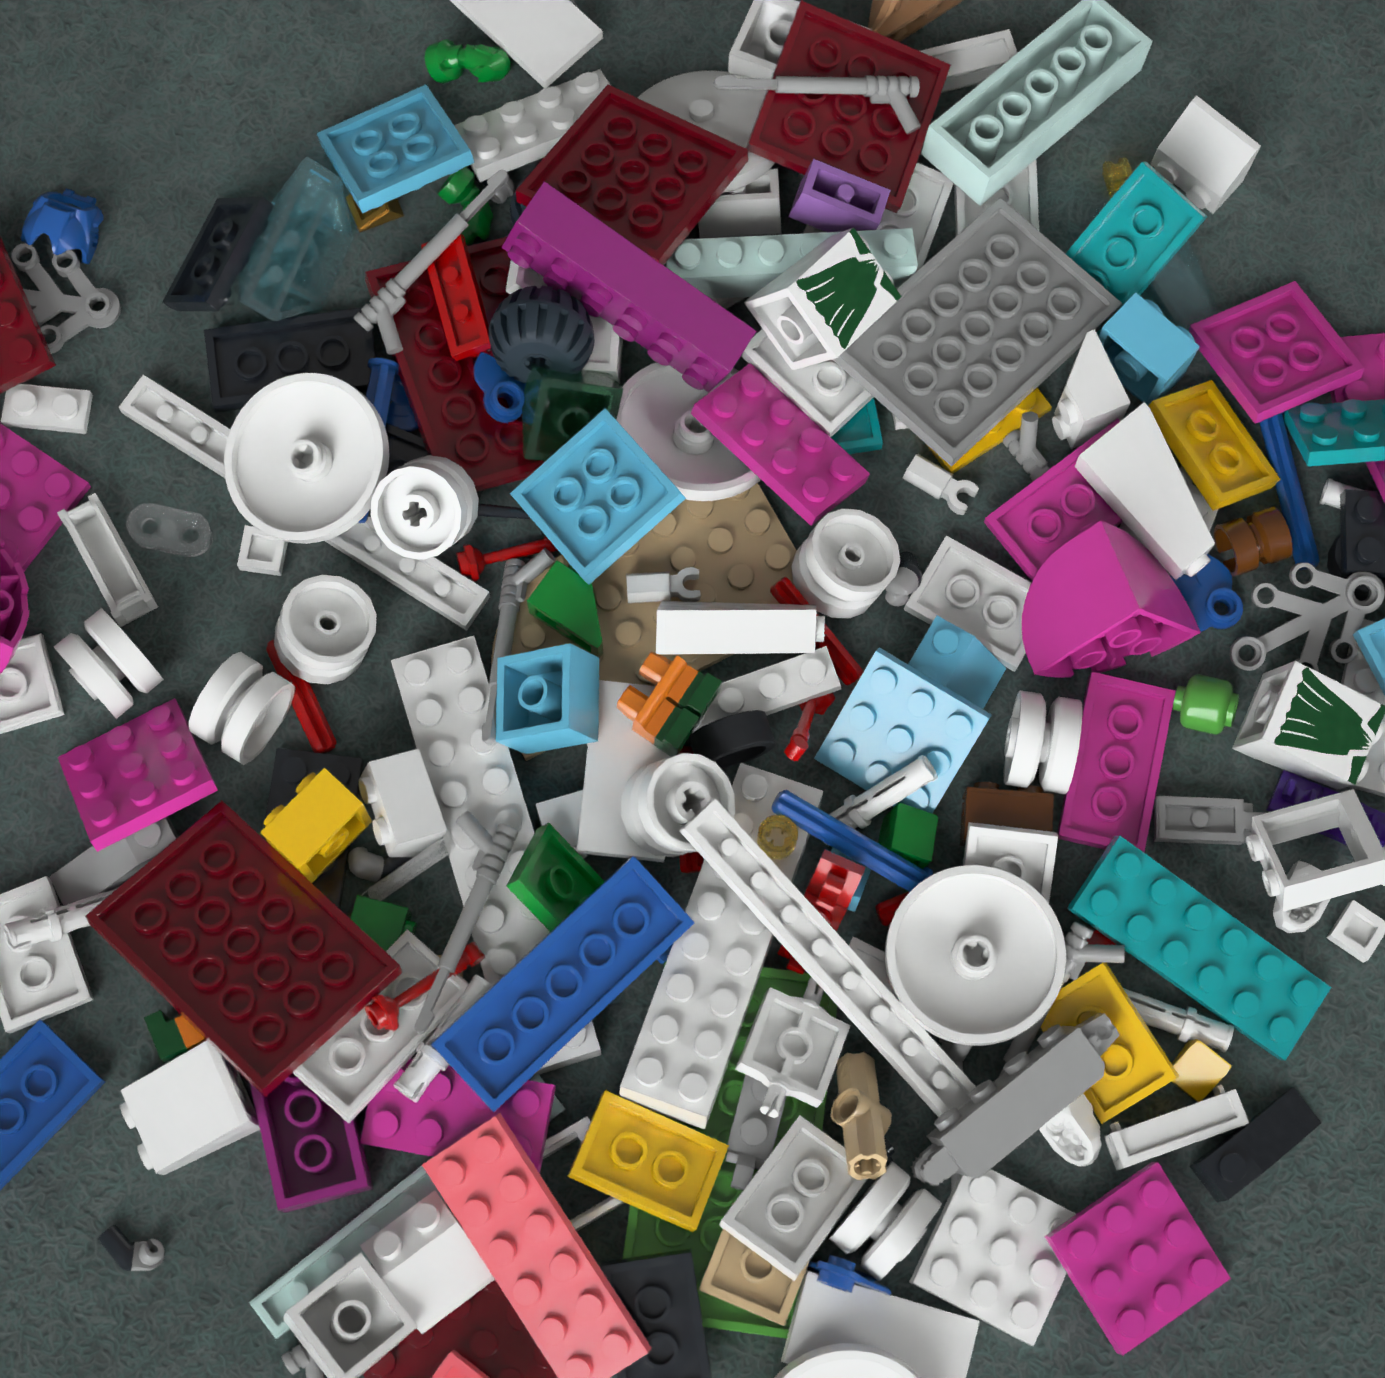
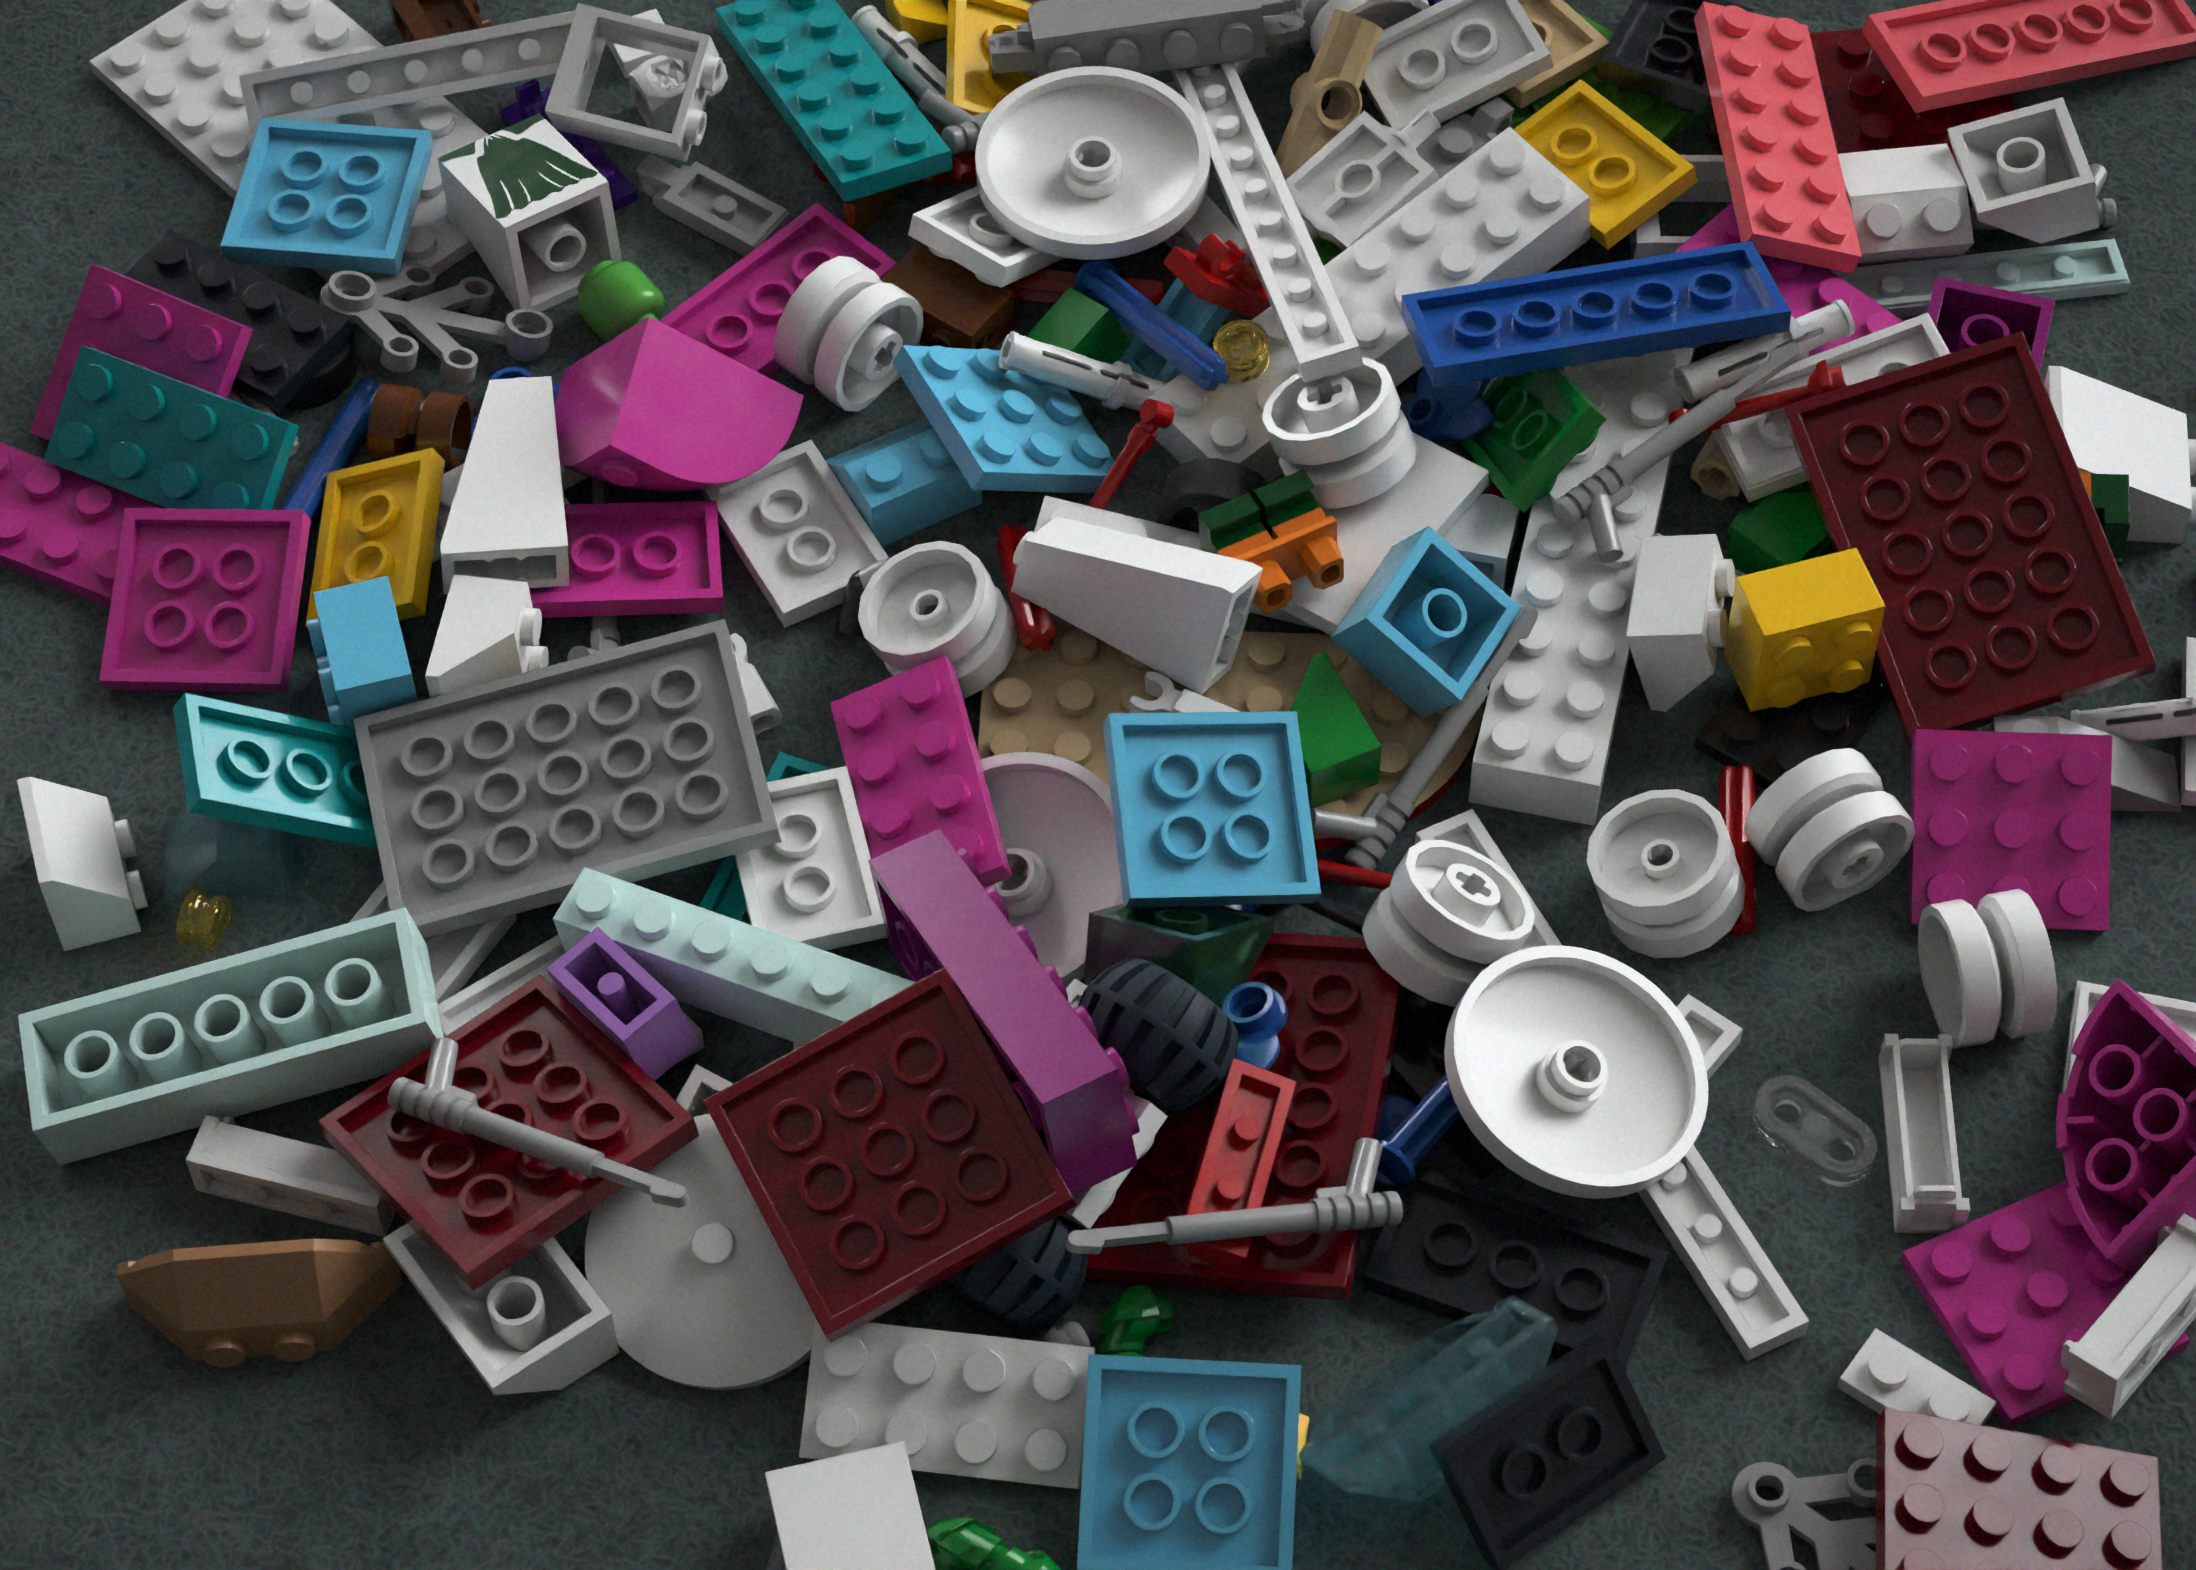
camera: 145 degrees left, 20 degrees down
(824, 300) = (746, 853): slope -> none

